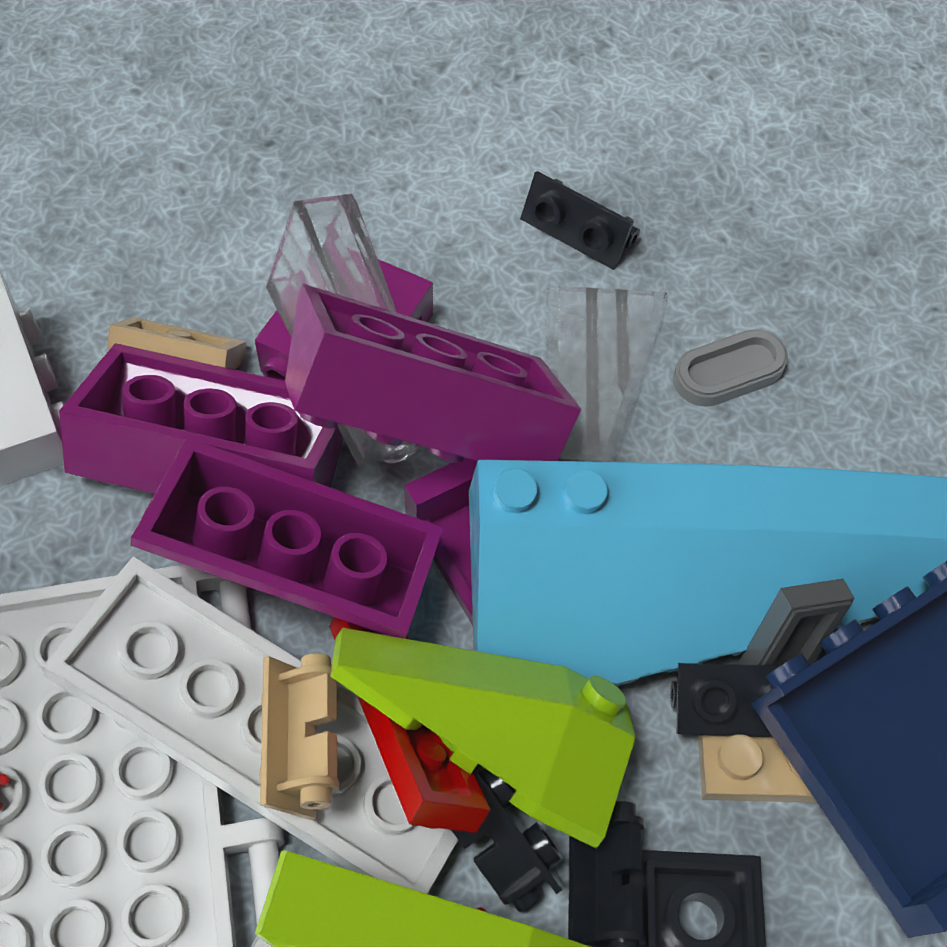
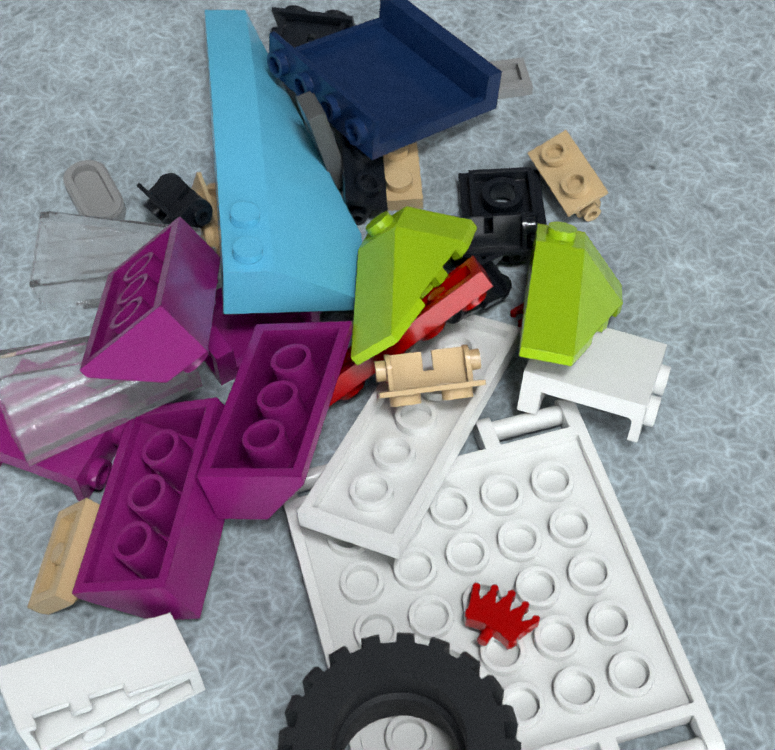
camera: 90 degrees left, 5 degrees down
(680, 437) = (174, 198): none -> black hinge

